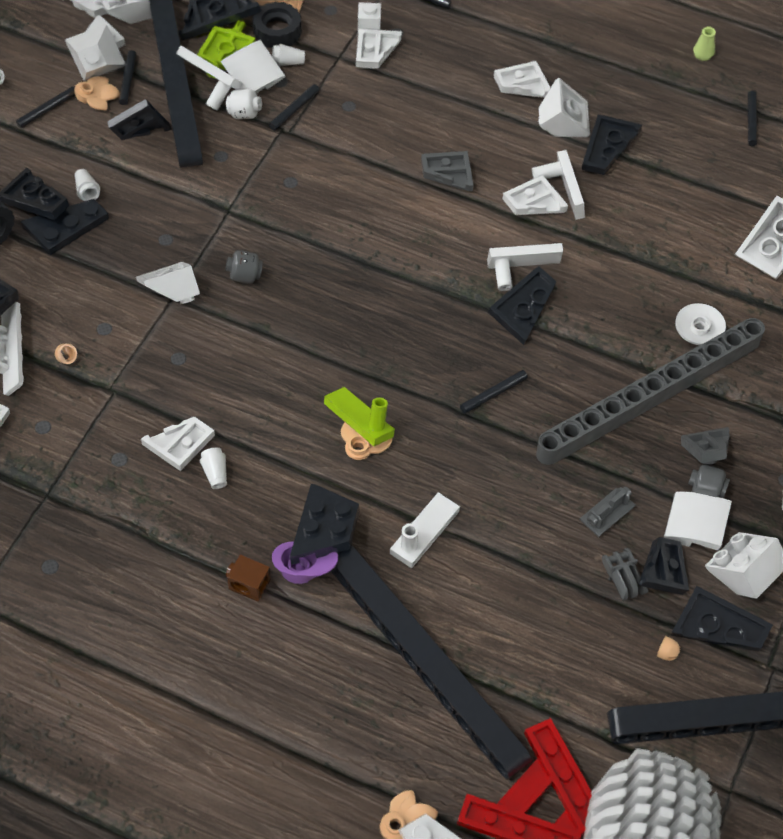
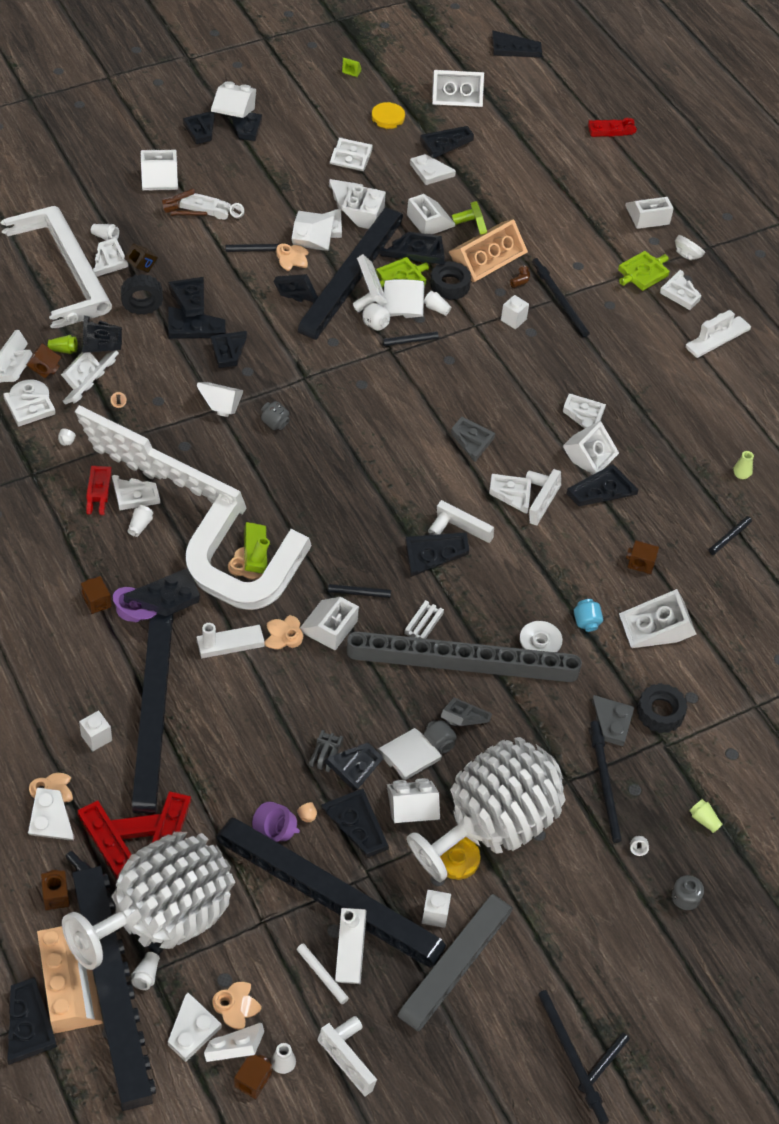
camera: 35 degrees right, 5 degrees down
(48, 430) = (66, 437): none -> white hinge
(86, 186) = (228, 309): white cone -> none
(126, 227) = (228, 348): none -> black wing
(127, 77) = (321, 258): black bar -> none
(137, 462) = (98, 488): none -> red hinge
(170, 394) = (227, 504): none -> white piece
(375, 47) = (503, 331): white wing -> none
(392, 722) = (95, 731): none -> white brick
(464, 484) = (282, 631): none -> light nougat plate
(503, 440) = (331, 621): none -> white slope
(577, 363) = (431, 609): none -> white tile
(608, 511) = (356, 709): dark grey hinge -> none
(652, 682) = (275, 821): none -> medium lavender piece
(707, 186) = (642, 557): none -> reddish brown brick
(717, 273) = (588, 615): none -> medium azure head

